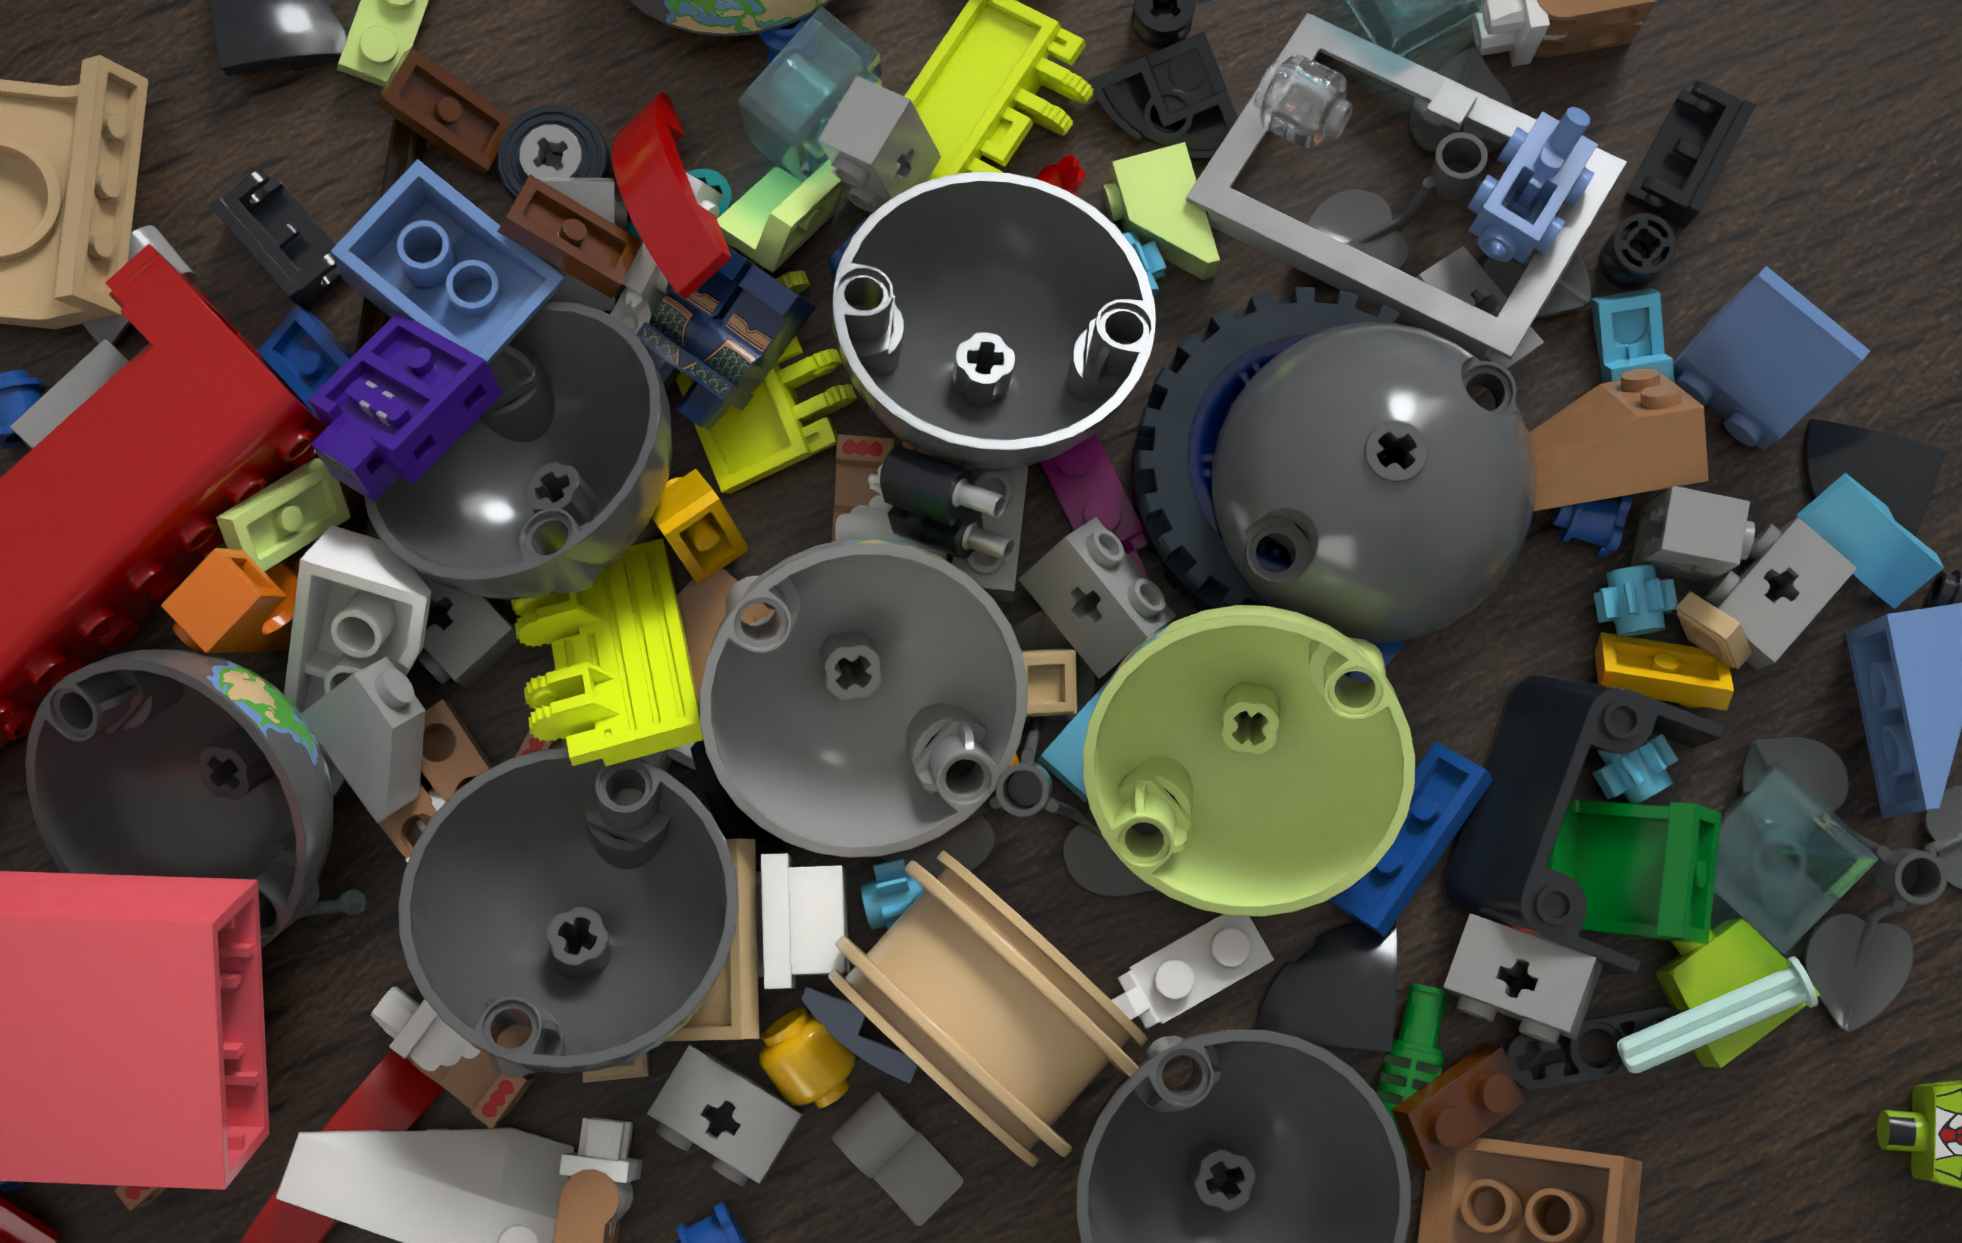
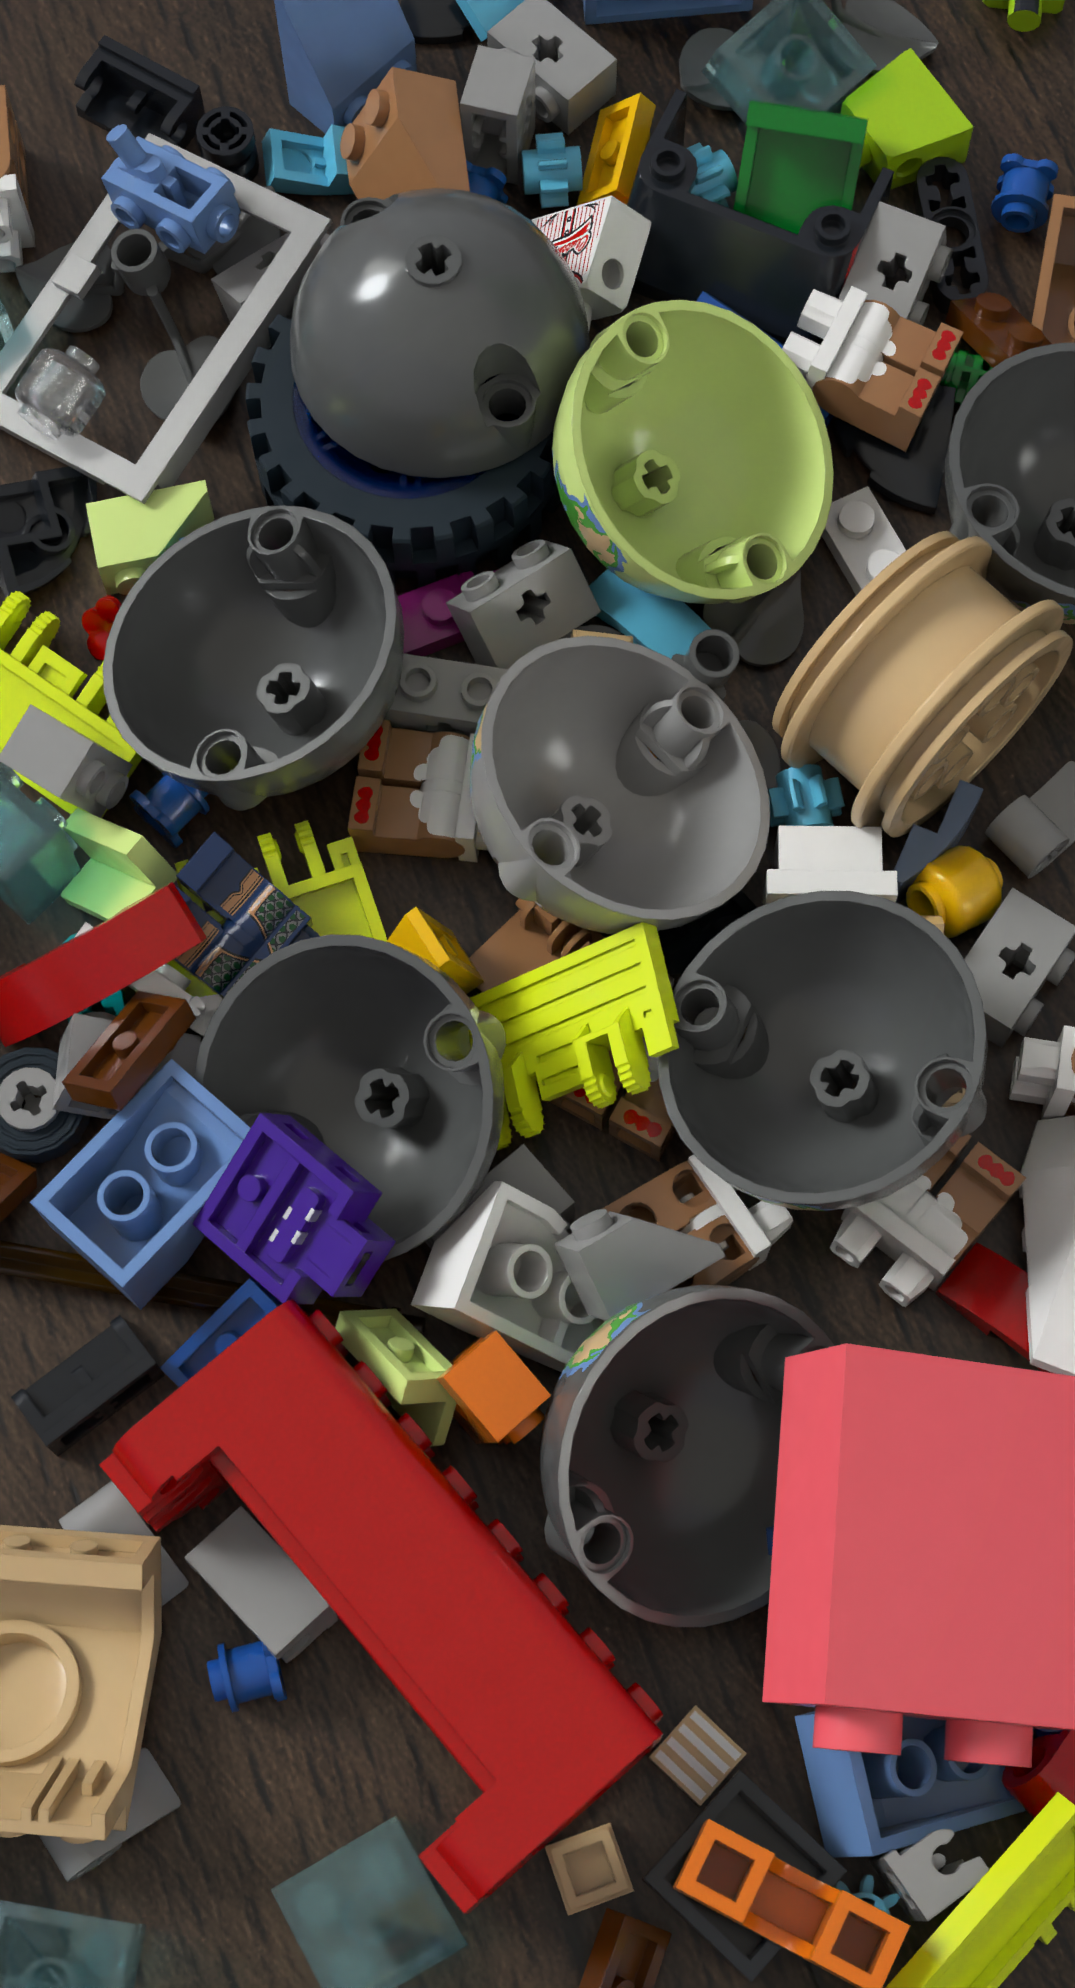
camera: 85 degrees left, 10 degrees down
(939, 504) = (433, 716): black piece -> none
(1394, 956) = (871, 363): none -> hips
(1511, 642) = (602, 248): none -> white torso
(1650, 1129) = (1023, 192): none -> blue brick
(1713, 631) = (584, 107): tan tile -> none
(1718, 1018) = (931, 117): light aqua axle -> none

